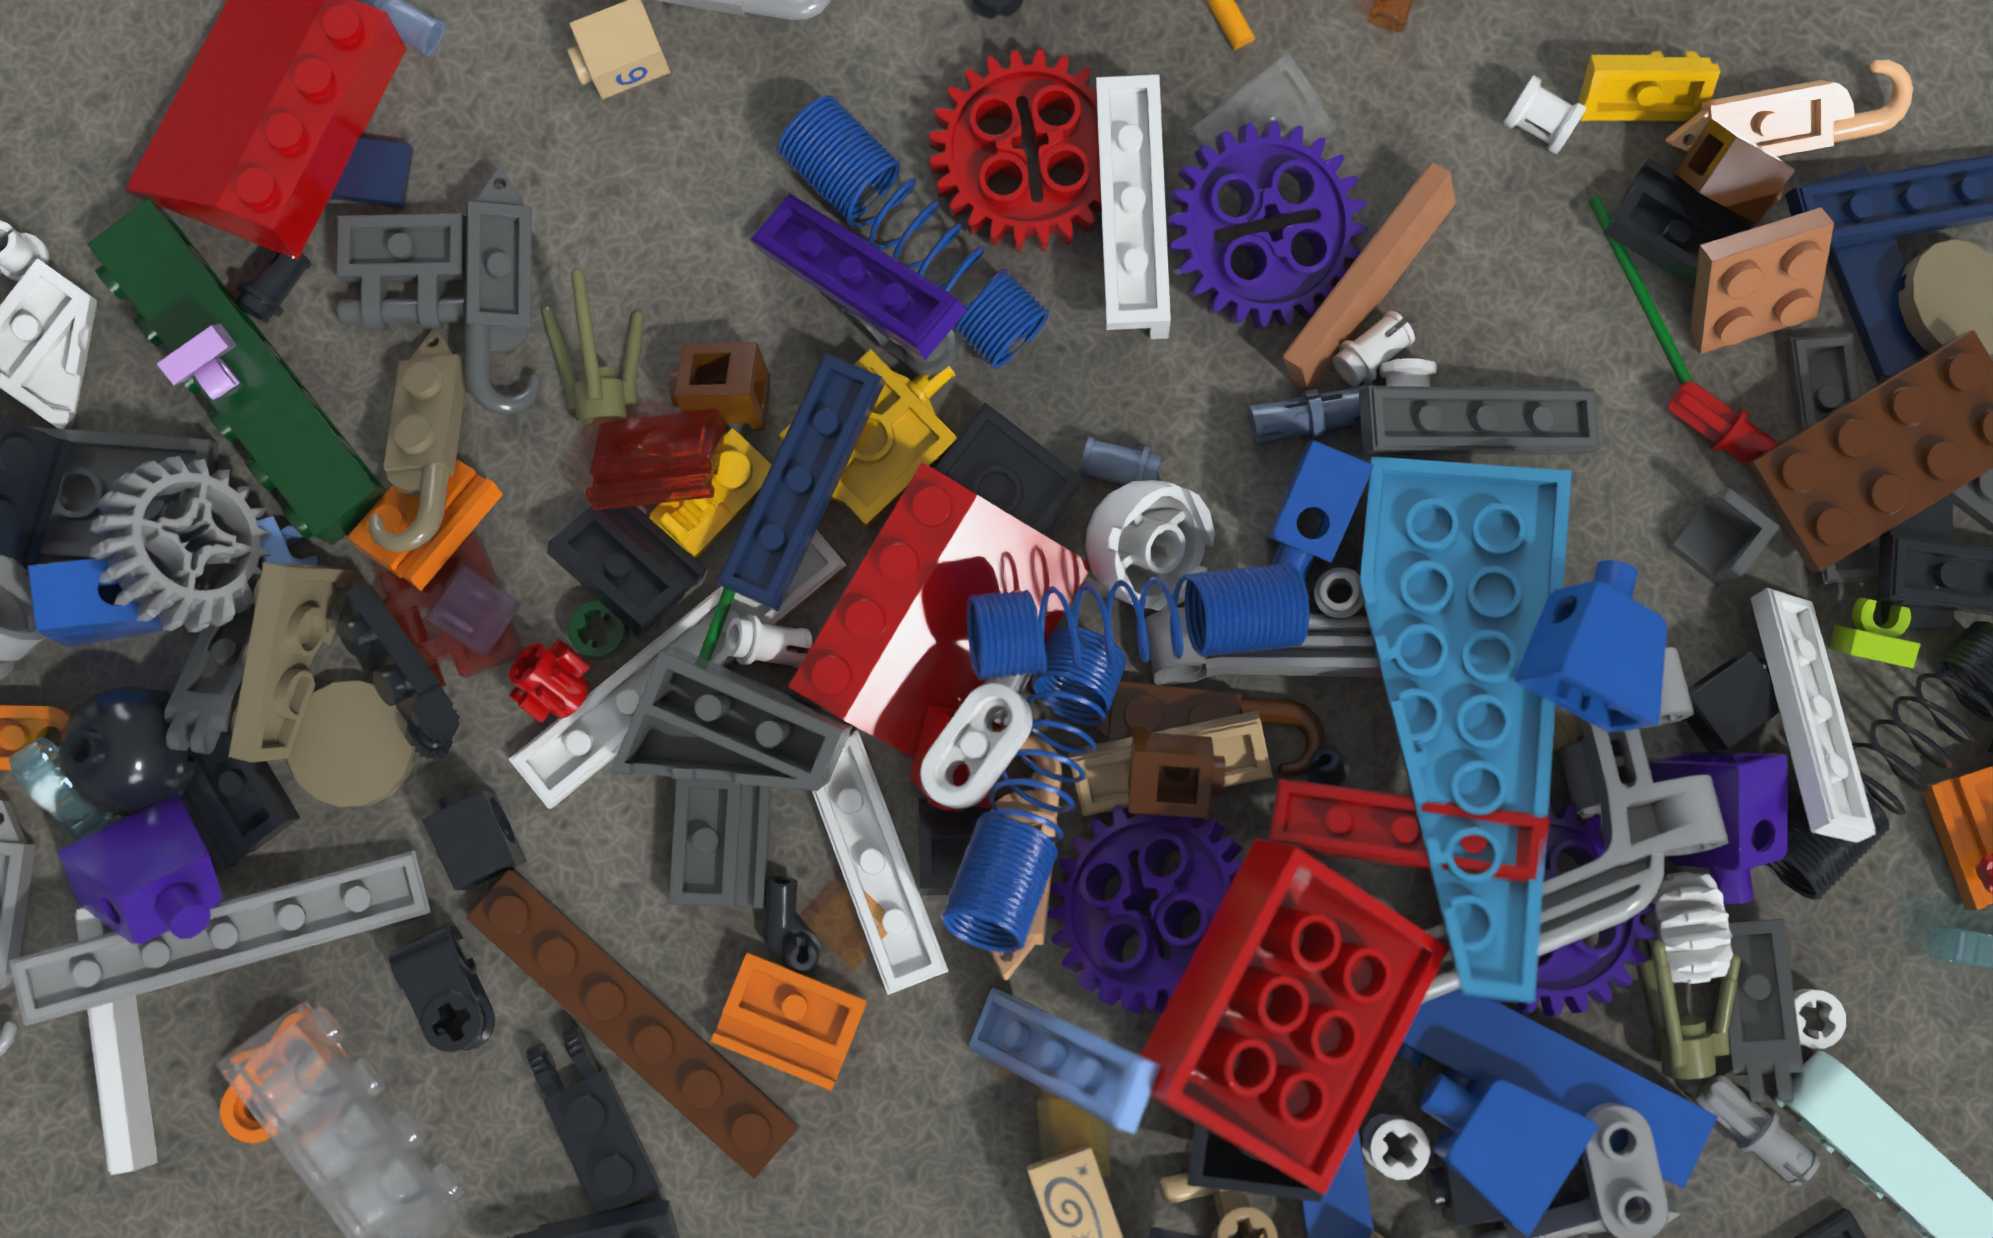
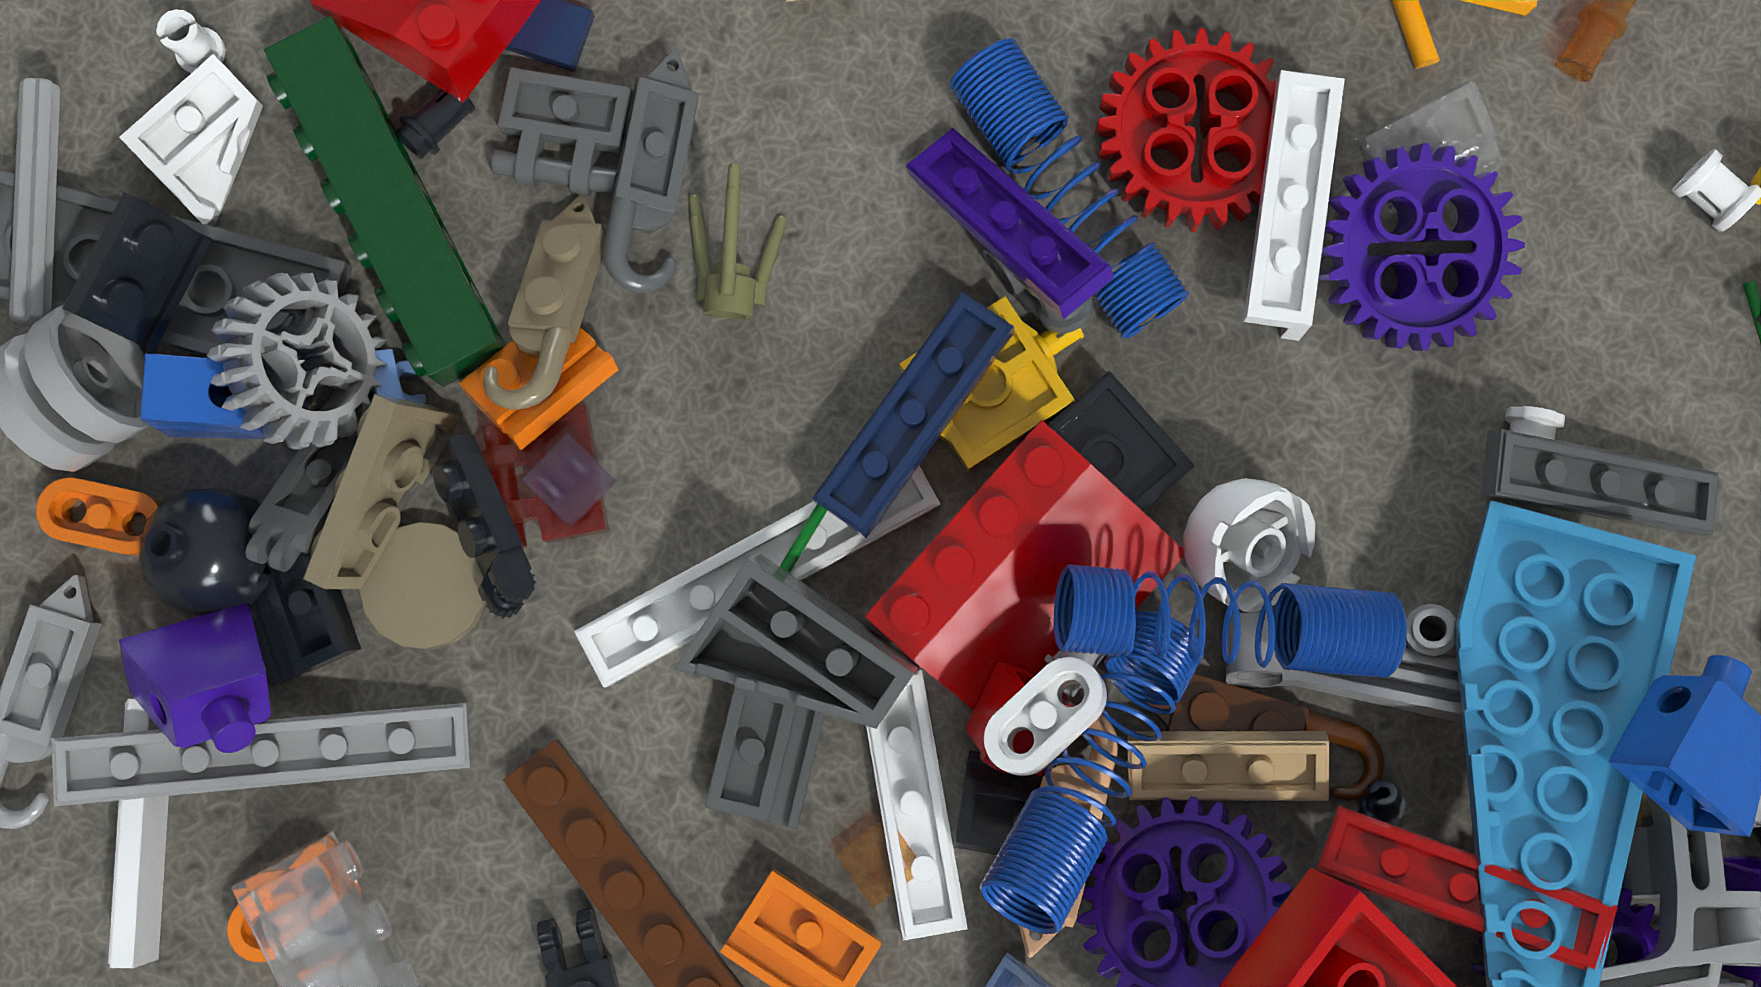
camera: 15 degrees right, 0 degrees up
(40, 775) = (117, 561): clear light blue beam -> none
(203, 360) = (352, 183): lavender tile -> none
(441, 980) = (467, 841): black piece -> none
(473, 837) = (525, 702): black brick -> none
(549, 680) = (629, 562): red gear -> none
(580, 622) = (669, 510): dark green bush -> none
(626, 564) = (726, 459): black plate -> none
(656, 459) = (775, 365): clear red plate -> none
(701, 521) = (821, 410): yellow plate -> none
(725, 378) = (852, 302): reddish brown brick -> none
(752, 640) = (836, 561): white pin -> none
(784, 928) = (814, 855): black arm -> none
(1119, 463) = (1230, 456): sand blue pin -> none
(1169, 793) = (1230, 799): reddish brown brick -> none
(1305, 415) = (1426, 443): sand blue pin -> none
(1330, 486) = (1440, 521): blue torso -> none
(1362, 357) = (1490, 397): white pin -> none
(1370, 277) = (1514, 319): nougat tile -> none

